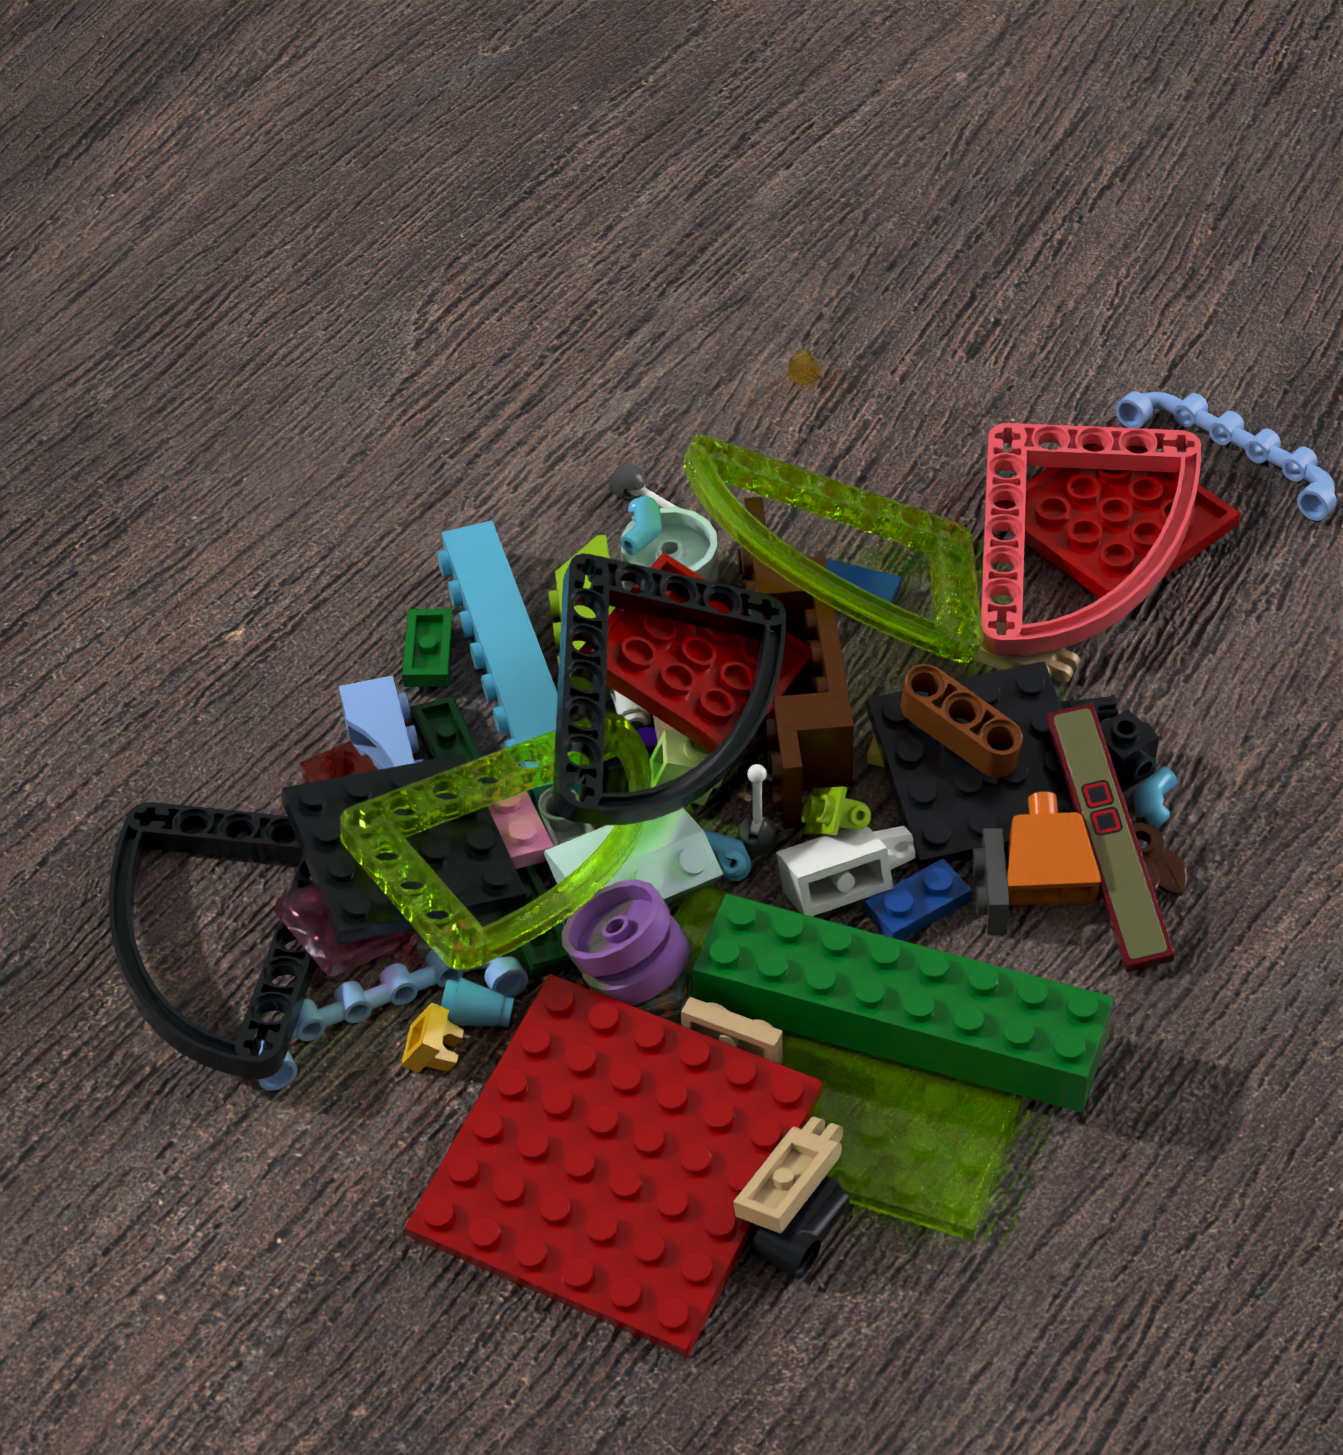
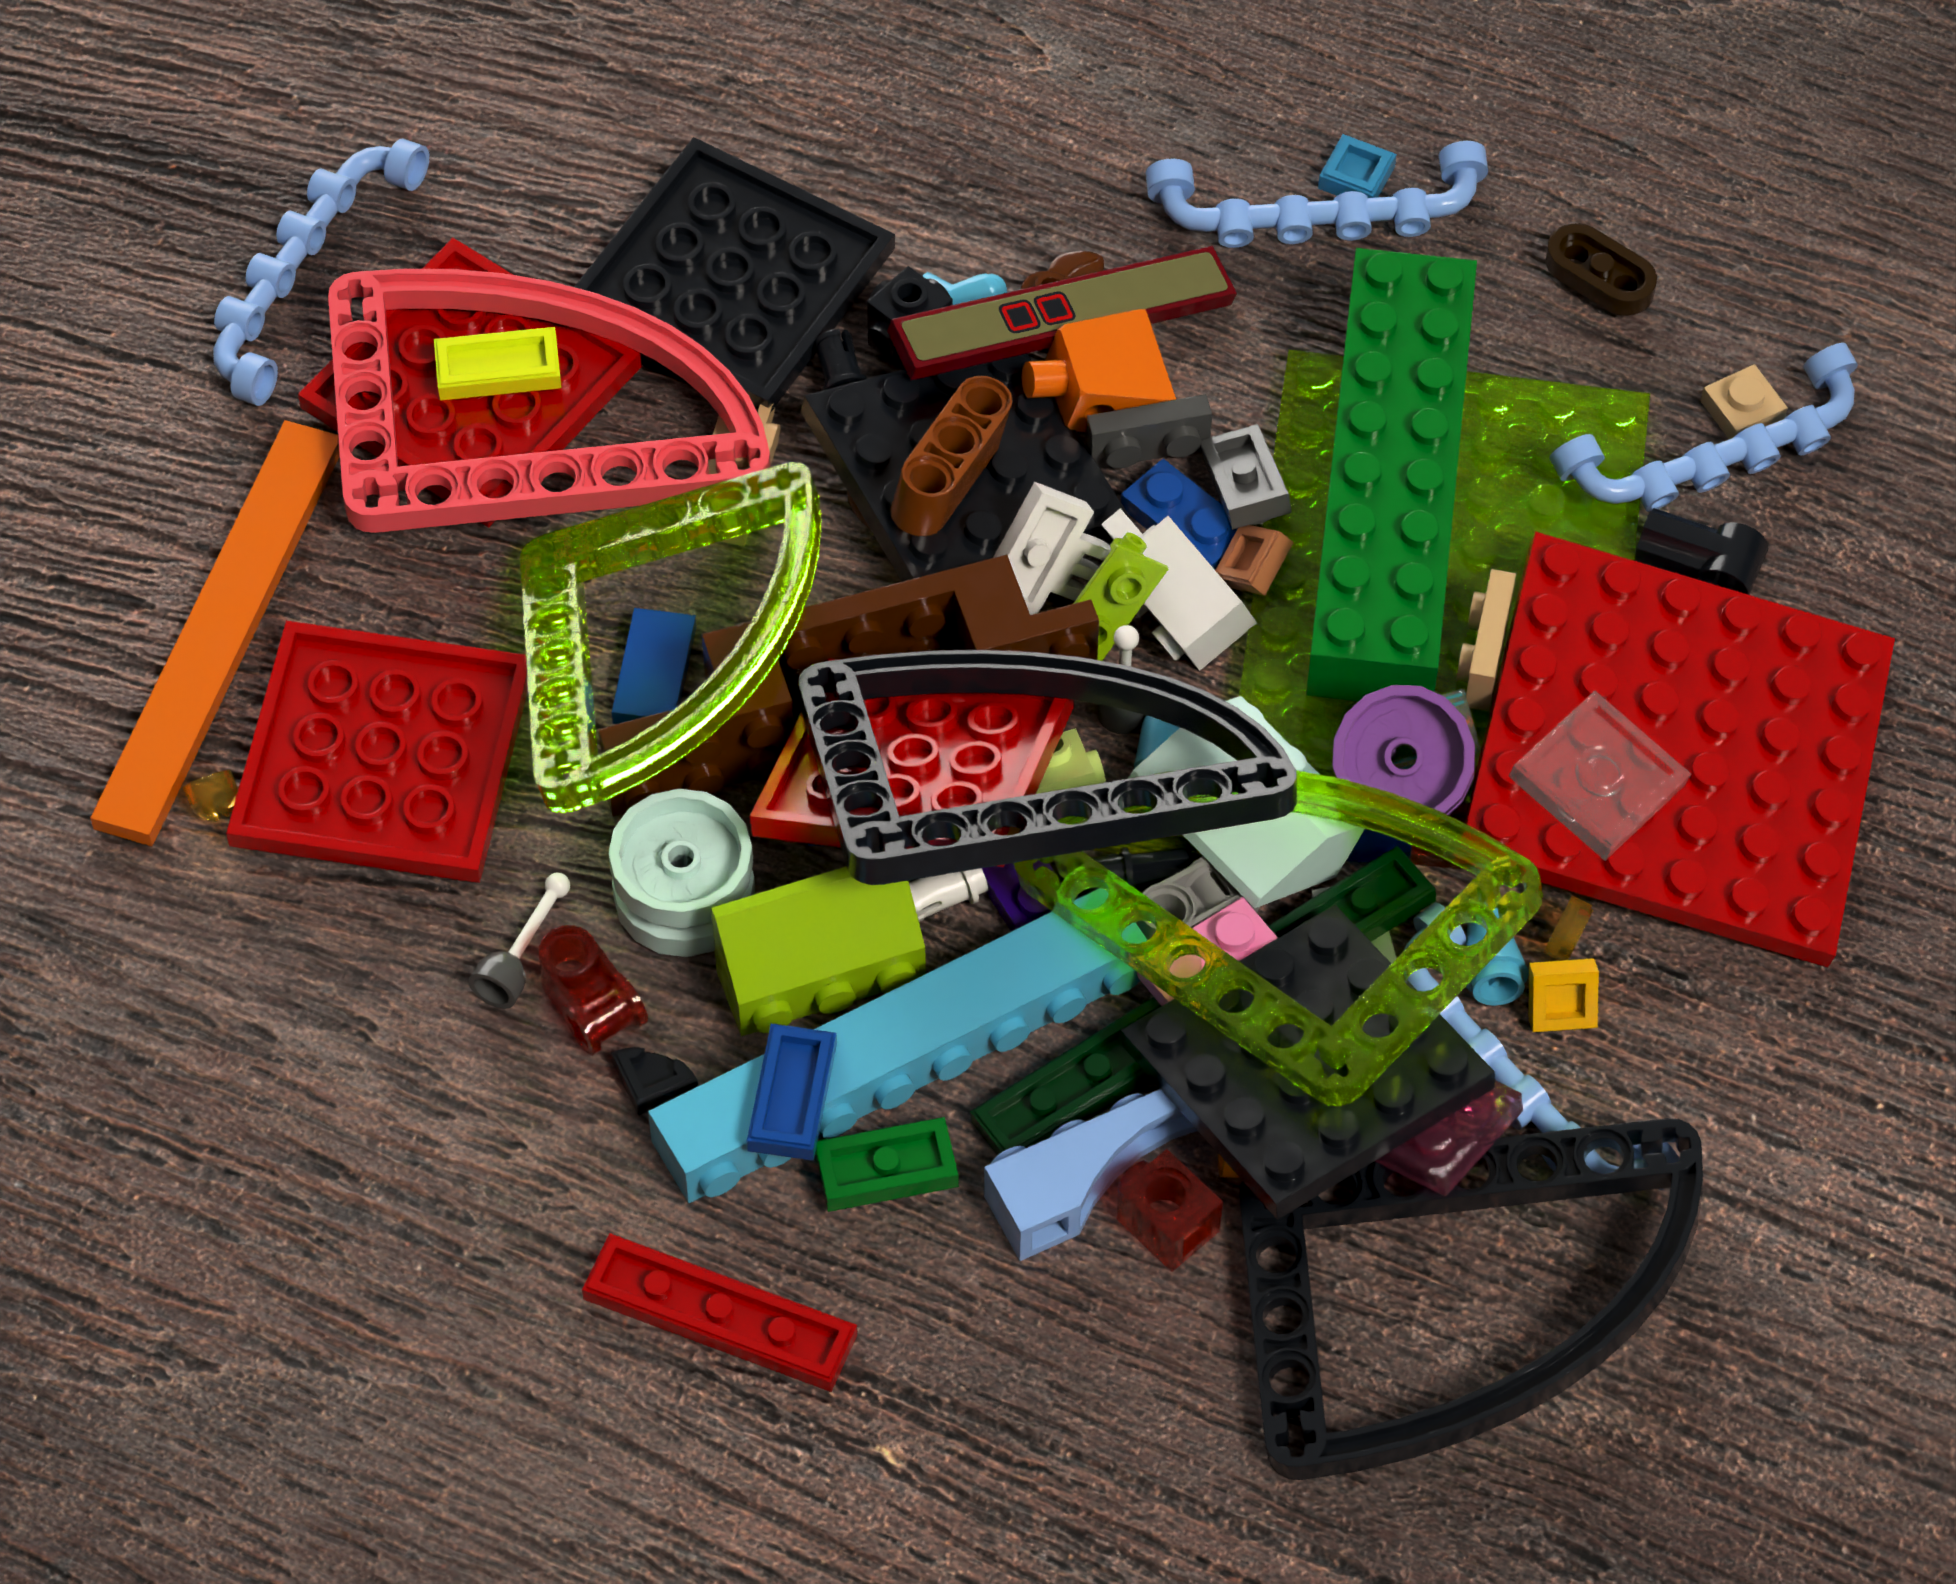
camera: 105 degrees left, 10 degrees up
(359, 563) = (720, 1312): none -> red tile
(477, 583) = (792, 1092): none -> blue tile
(479, 1054) = (1569, 929): none -> clear yellow tile
(537, 550) = (651, 1077): none -> black tile
(580, 1069) = (1599, 775): none -> clear tile
(602, 514) = (593, 998): none -> clear red piece
(647, 526) = (669, 868): arm -> none
(790, 1175) = (1670, 543): tan hinge -> none
(827, 429) = (380, 752): none -> red plate
(860, 917) = (1253, 559): none -> nougat tile
(882, 781) = (1049, 546): none -> white hinge
(898, 1288) = (1707, 462): none -> light blue bar
(921, 378) = (216, 634): none -> orange tile
(937, 927) = (1245, 477): none -> dark grey plate
(956, 1306) = (1743, 401): none -> tan plate
(1107, 1225) = (1604, 269): none -> dark brown plate
(1116, 518) = (497, 363): none -> neon yellow tile
(1192, 665) = (741, 265): none -> black plate
(1199, 1058) = (1352, 212): none -> light blue bar
(1251, 1079) = (1357, 168): none -> dark azure tile

